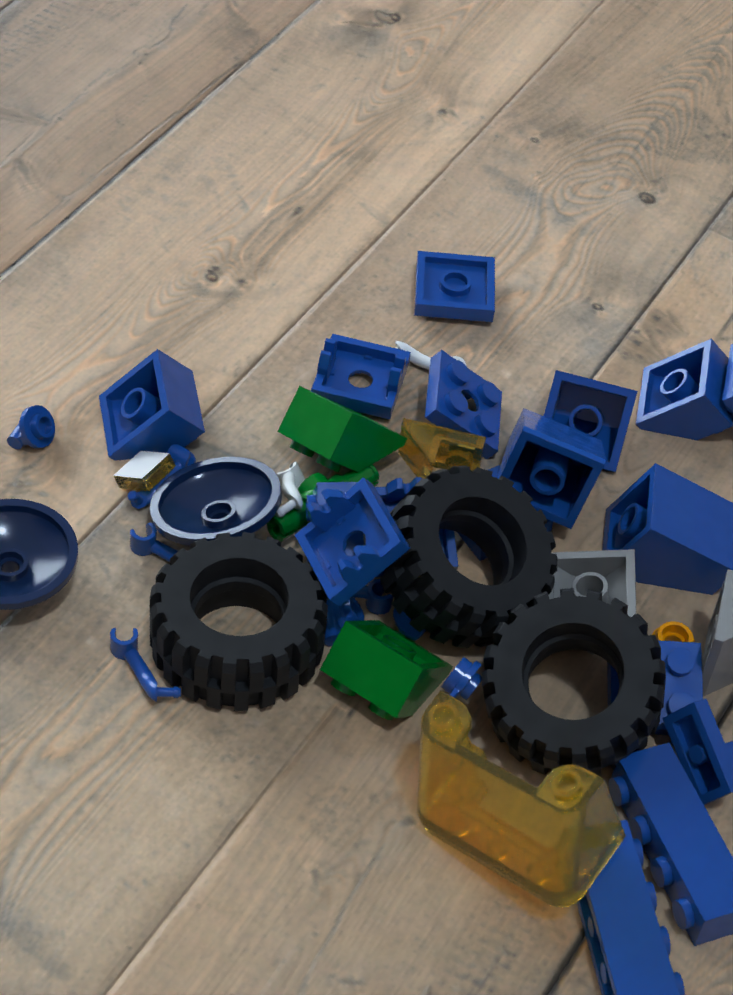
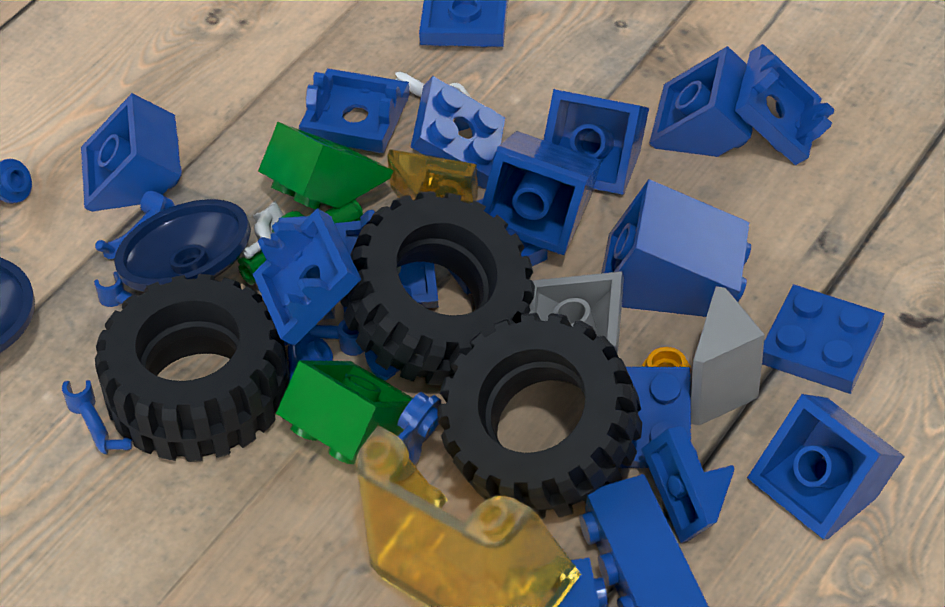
camera: 10 degrees right, 0 degrees up
(144, 470) = (117, 219): tile -> none

